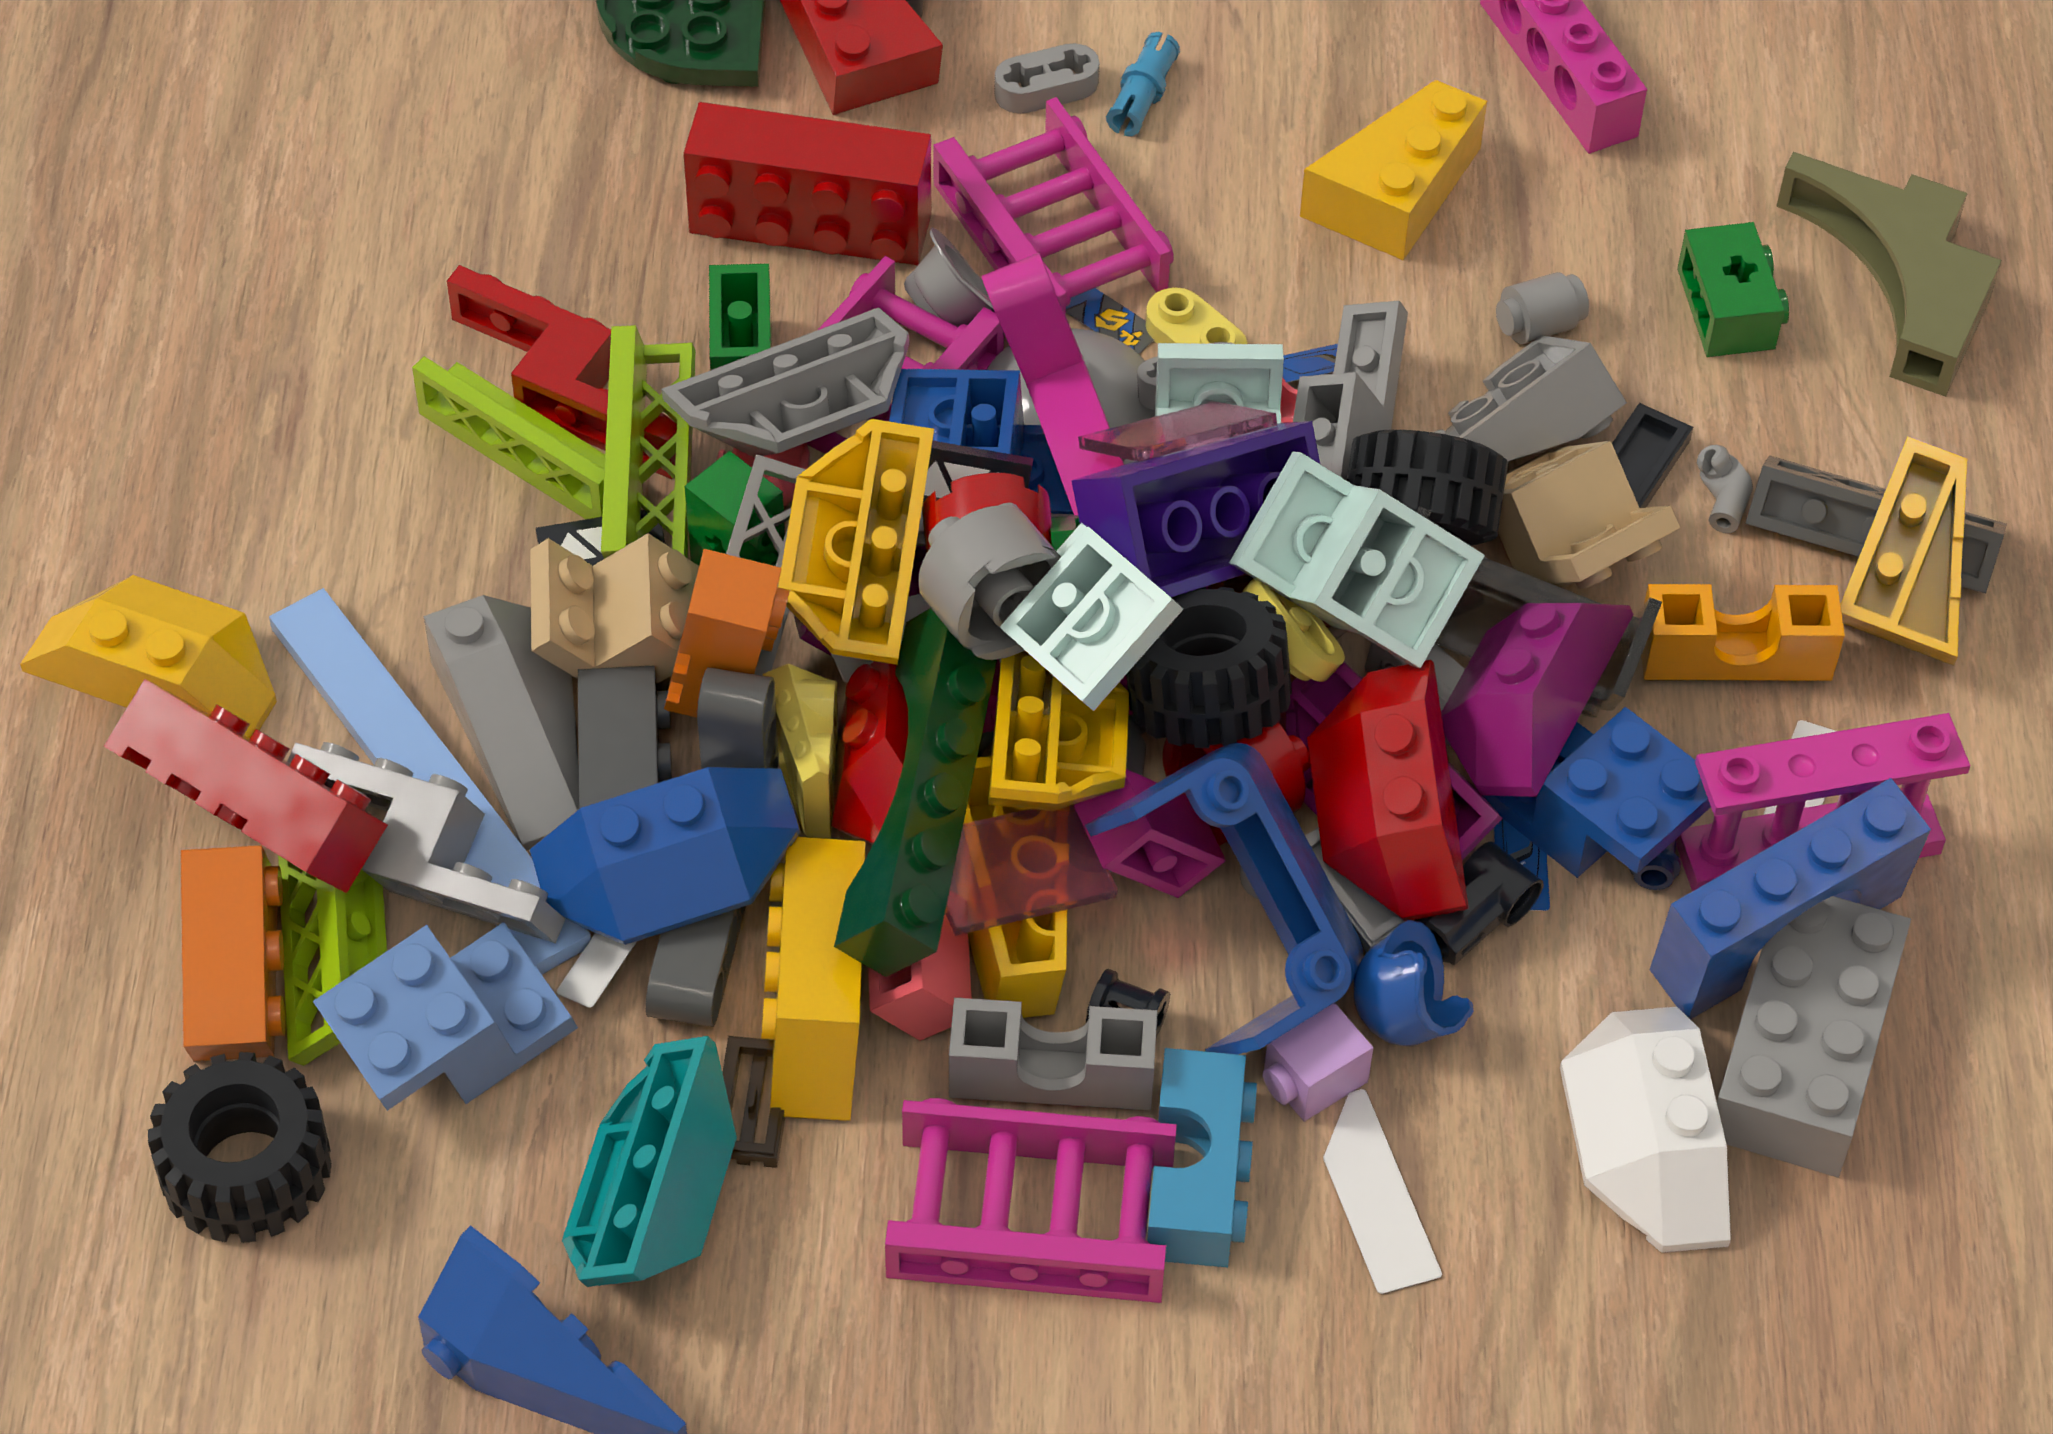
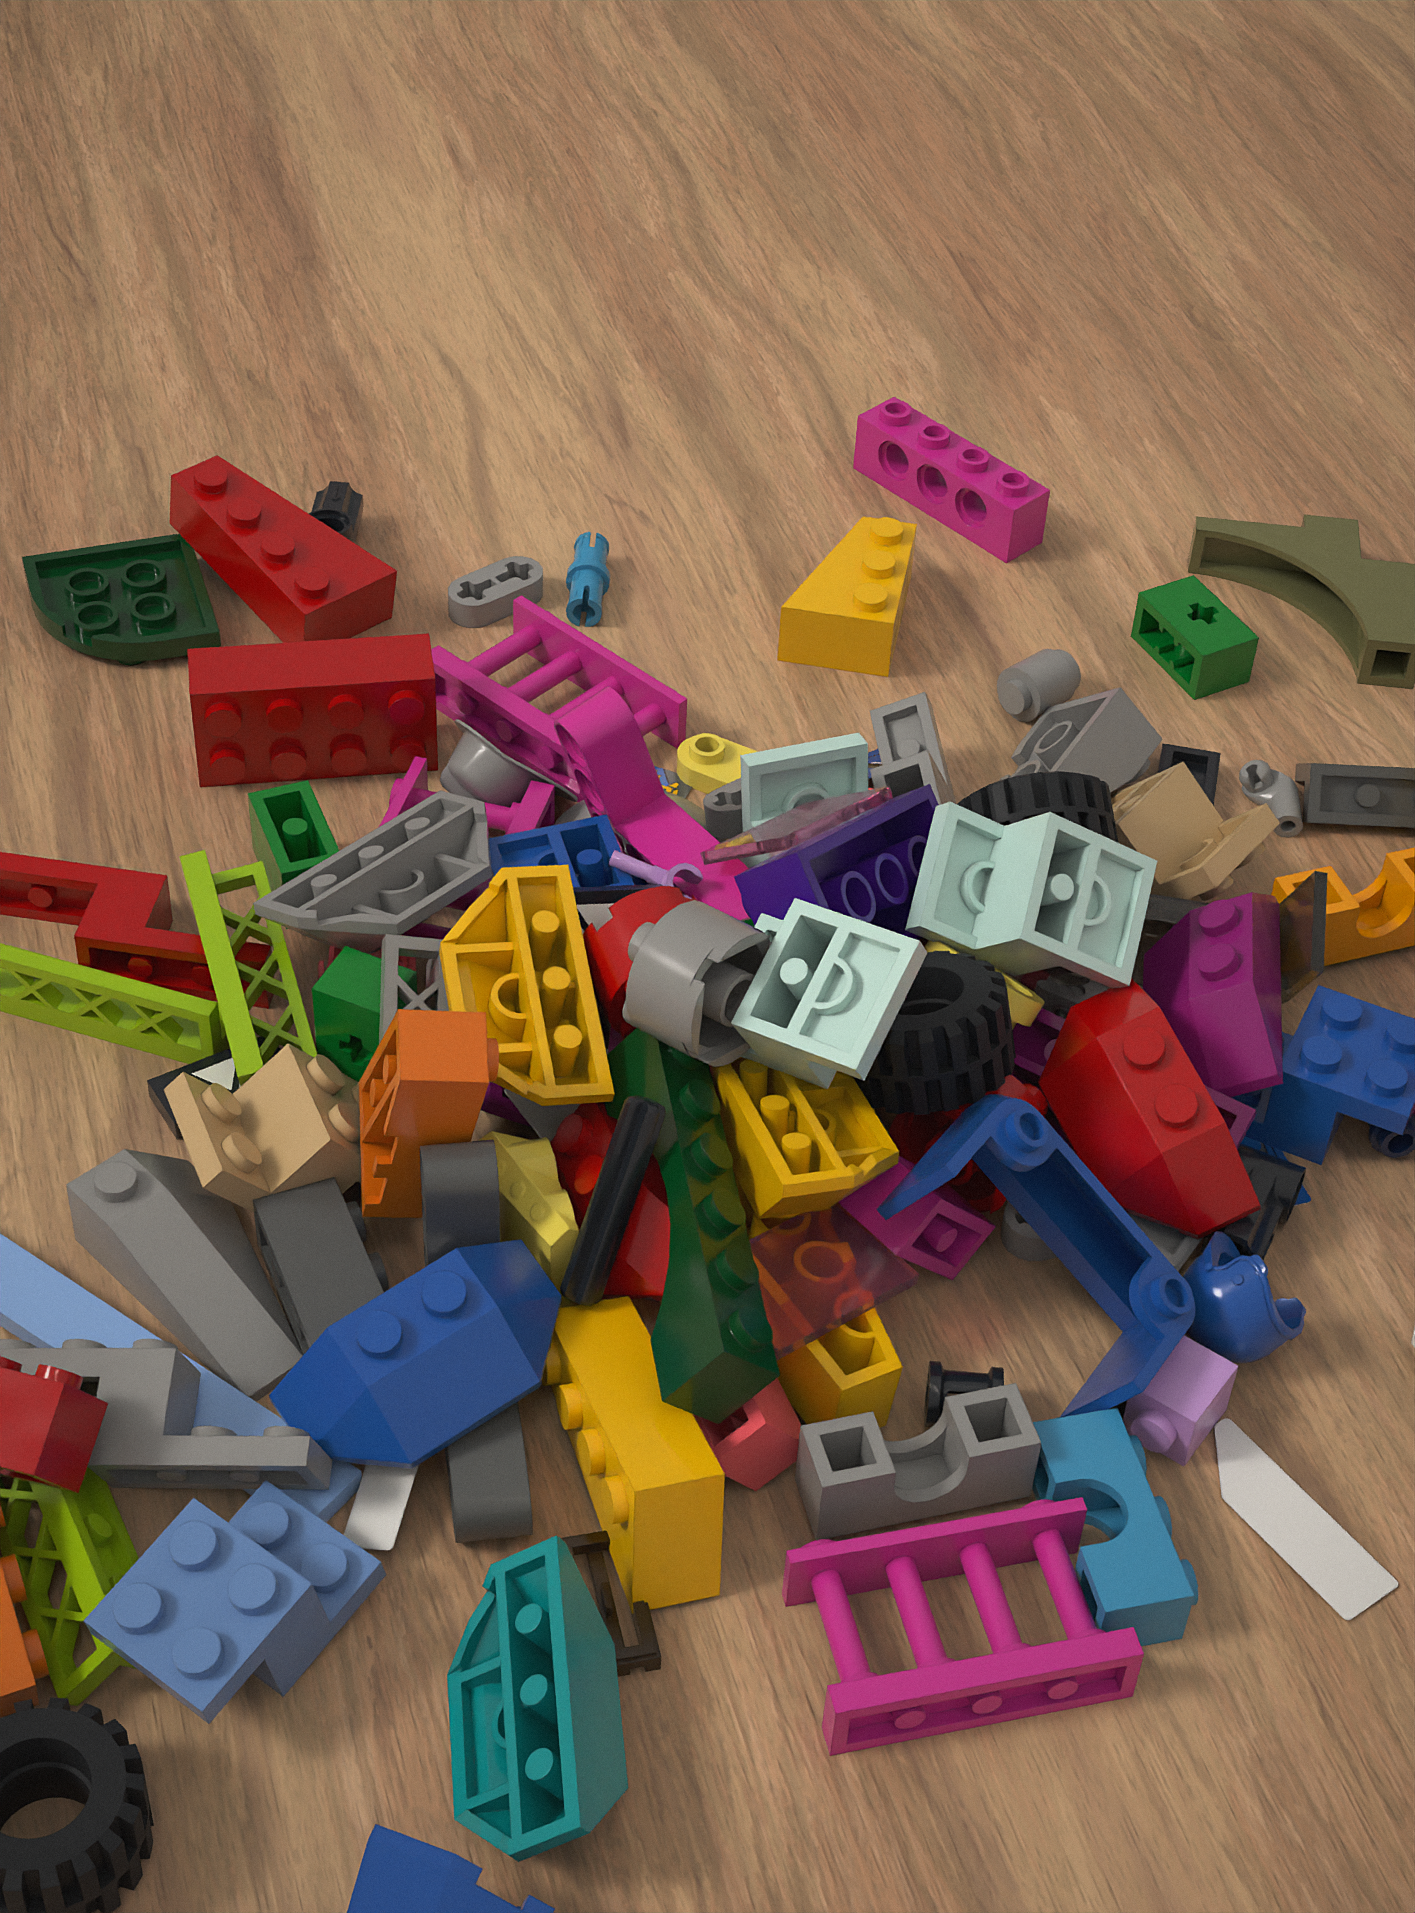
camera: 20 degrees left, 10 degrees down
(862, 756) = (612, 1200): none -> black axle
(1030, 447) = (655, 874): none -> lavender hand

